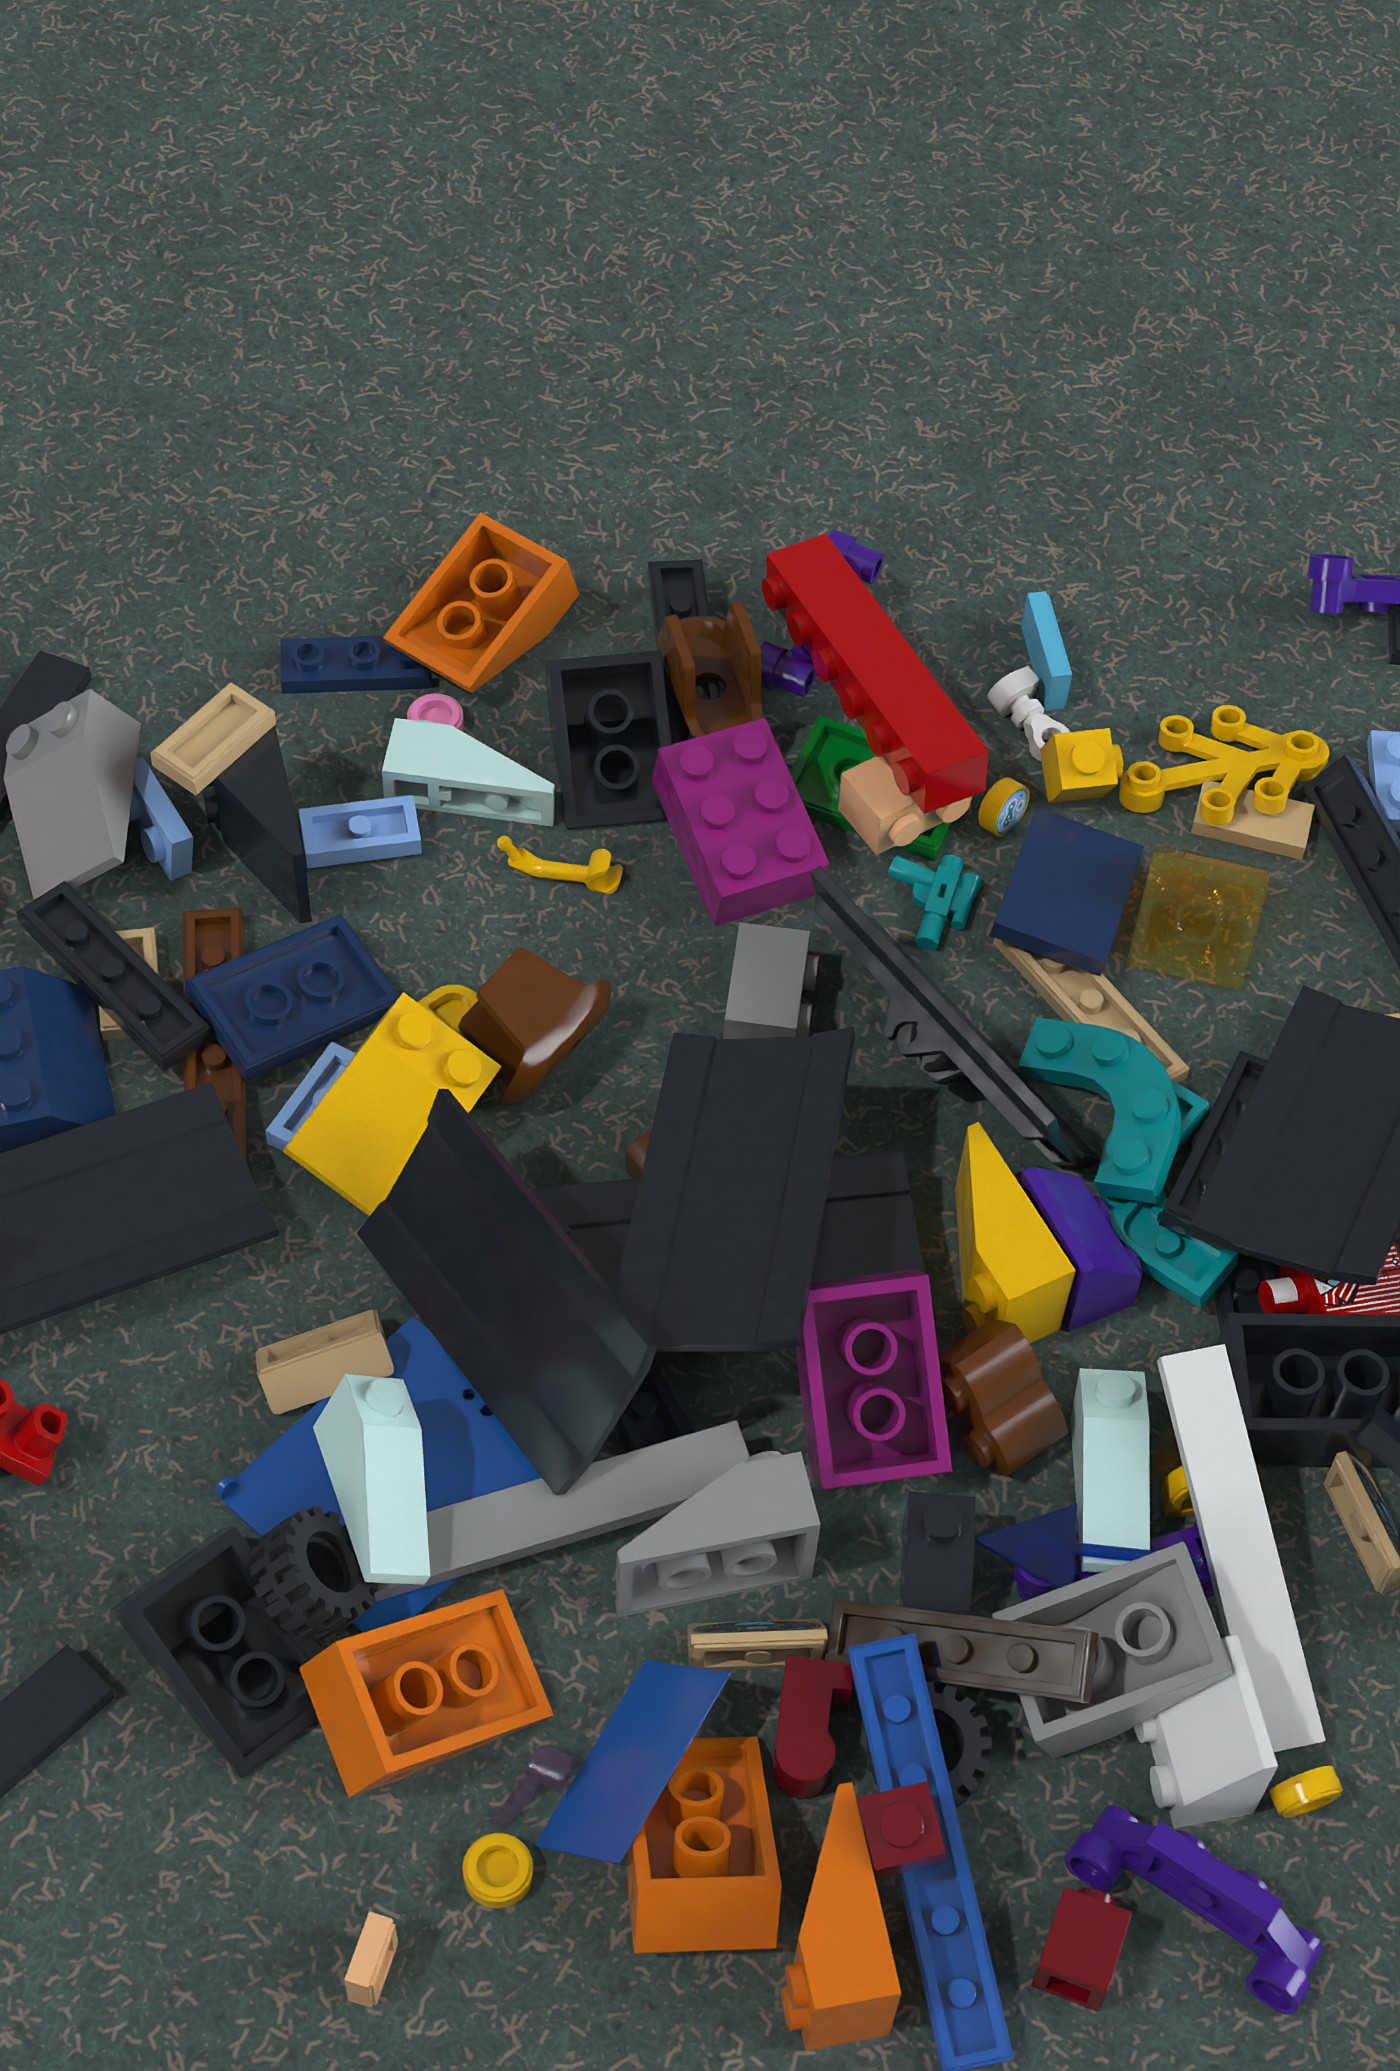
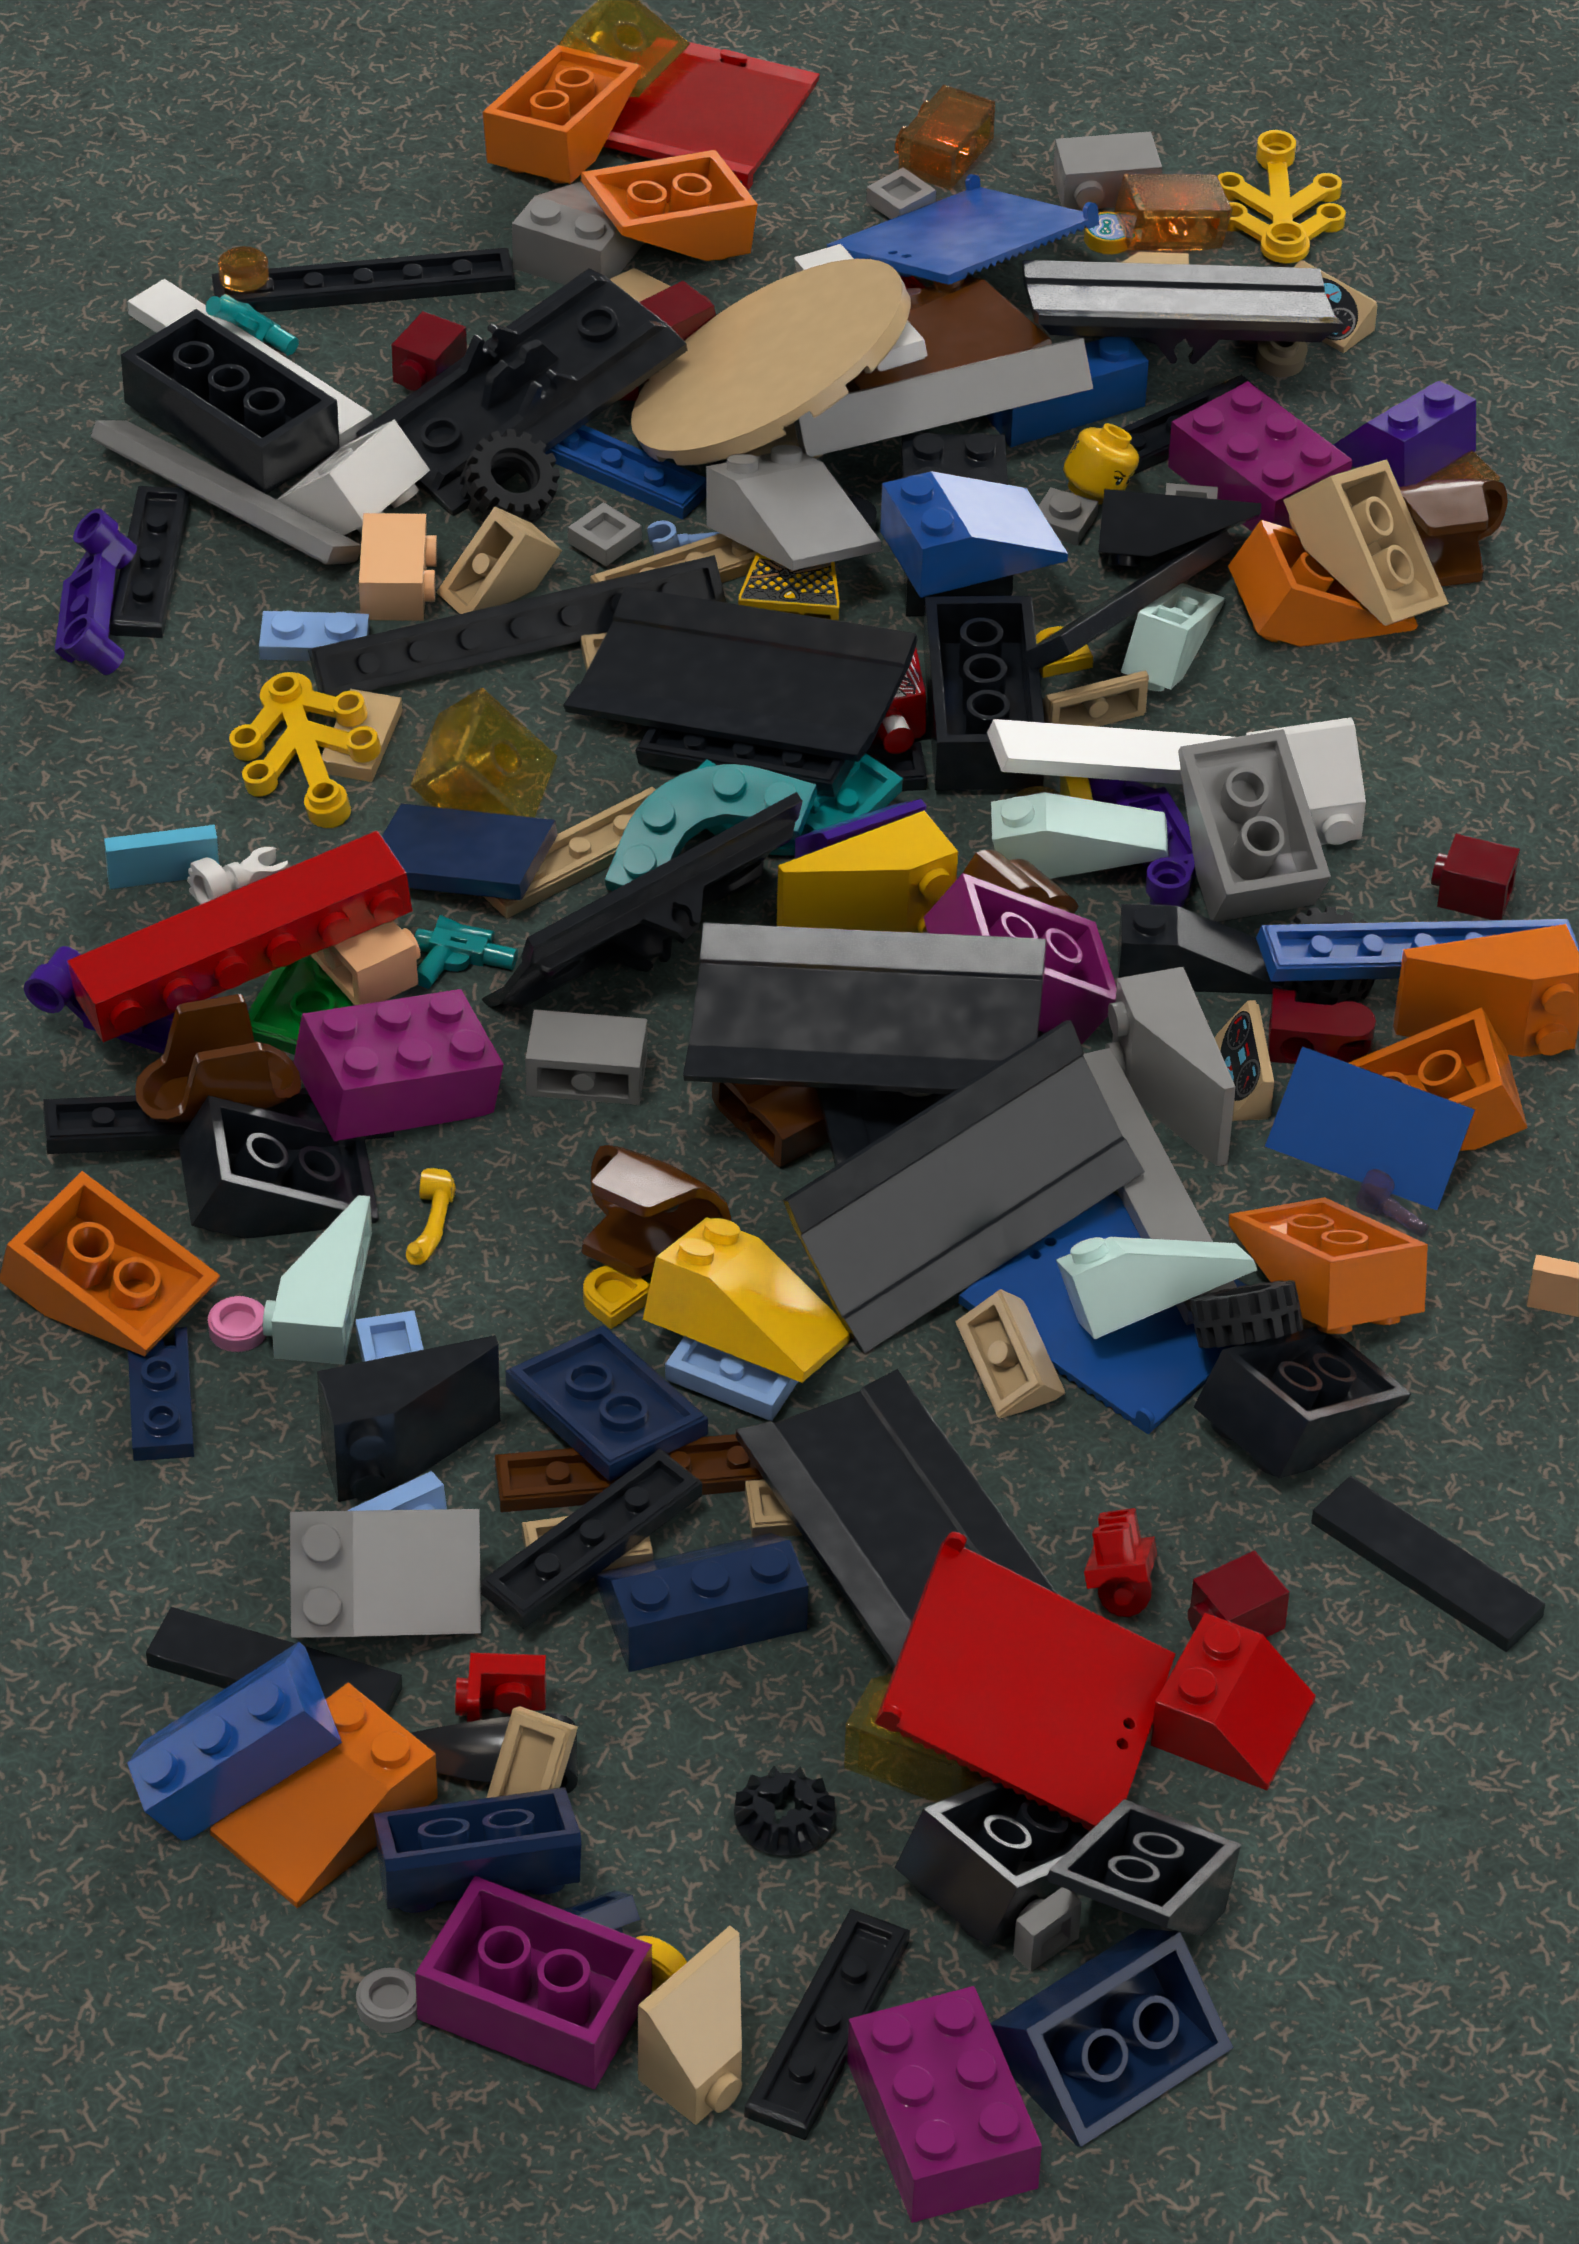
camera: 90 degrees left, 10 degrees down
(213, 738) = (356, 1407): tan tile -> none
(497, 1870) = (1465, 1225): yellow tile -> none
(901, 1830) = (1427, 921): dark red brick -> none
(975, 1649) = (1261, 898): dark brown tile -> none
(1049, 1547) = (1158, 869): clear blue piece -> none
(1080, 765) = (318, 823): yellow brick -> none
(1210, 1888) = (1415, 810): dark purple plate -> none

